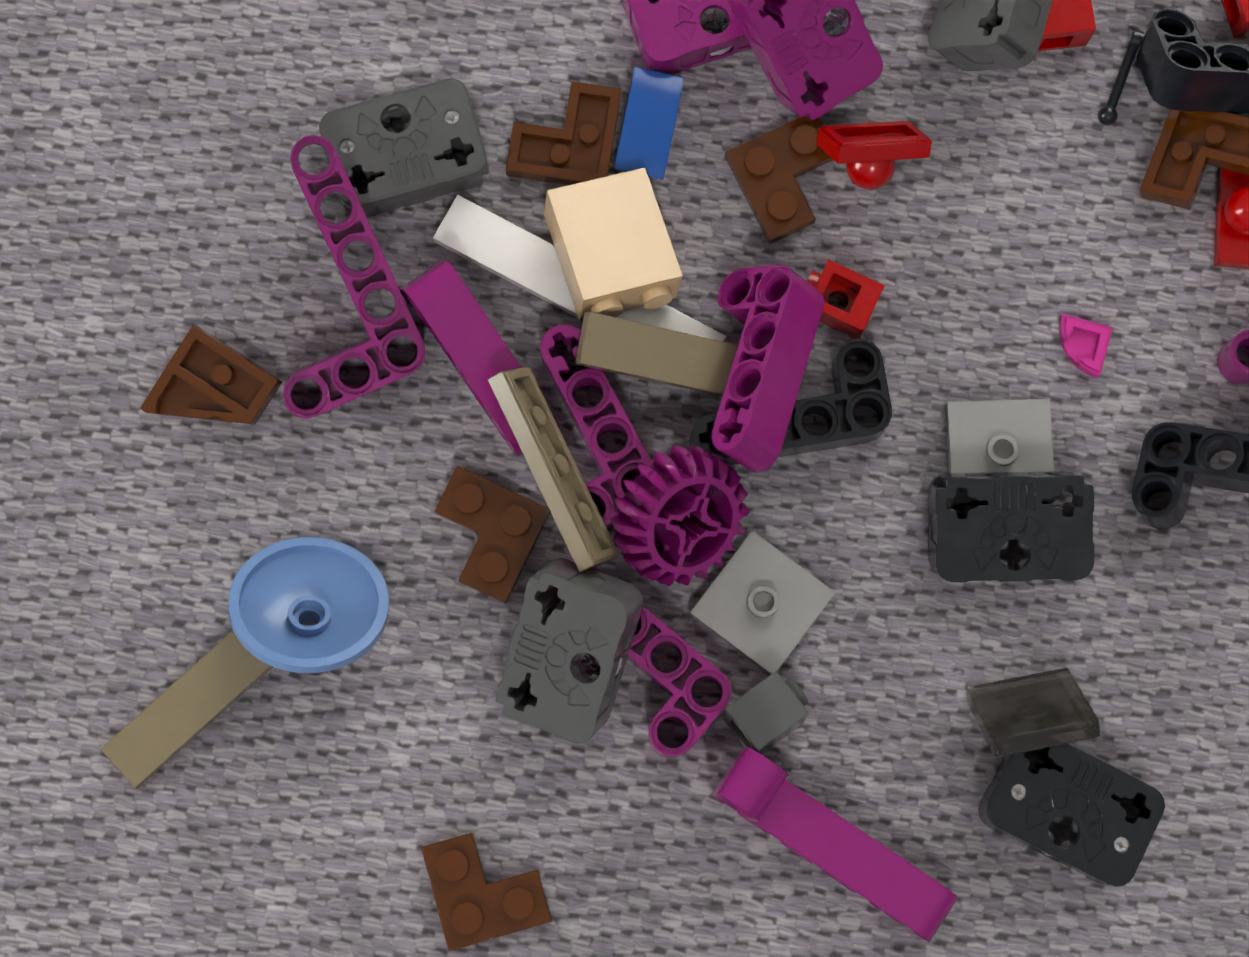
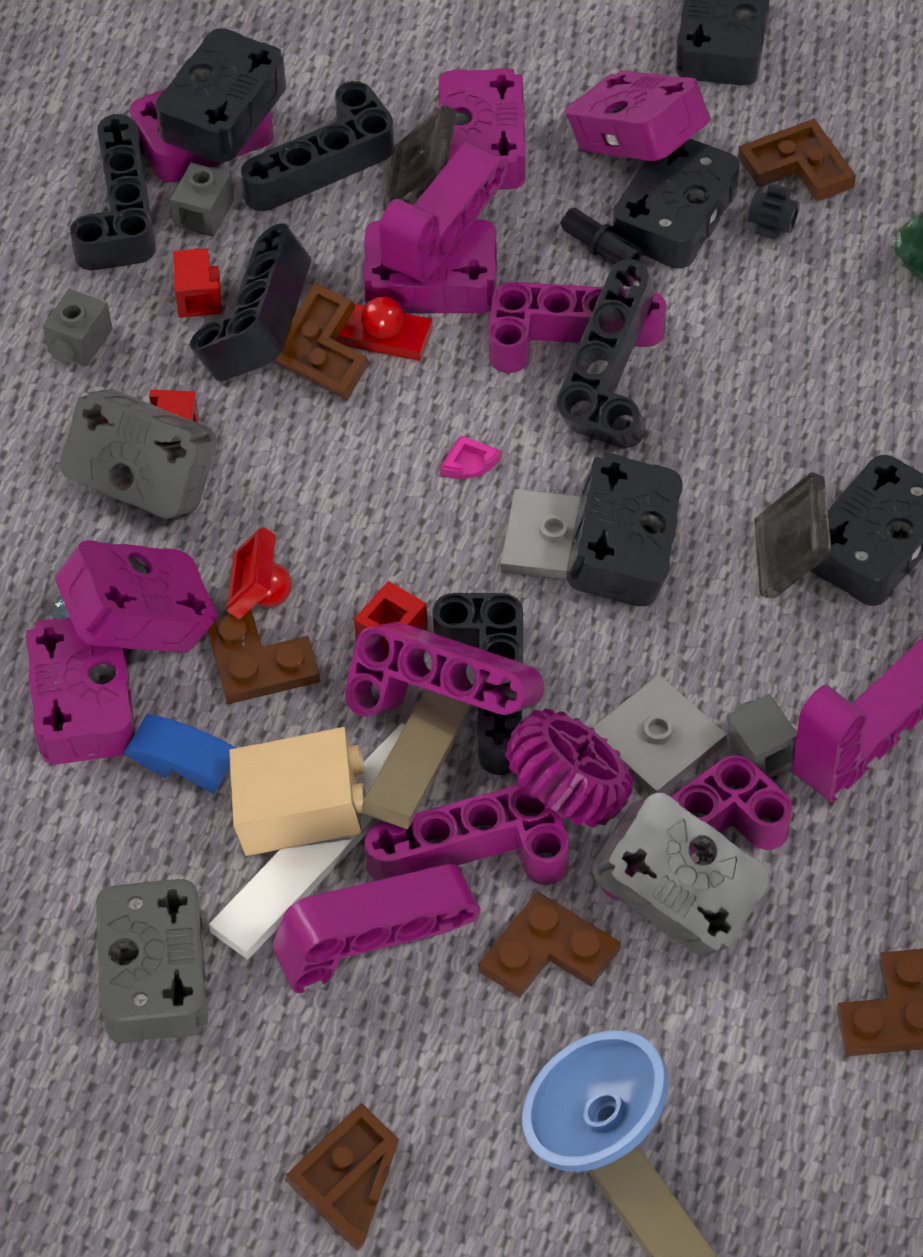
camera: 75 degrees left, 25 degrees down
(359, 285) = (284, 1009): magenta beam -> none
(553, 468) = (507, 851): dark tan tile -> none
(573, 153) = (192, 819): reddish brown plate -> none
(1108, 115) = (266, 409): black hinge -> none

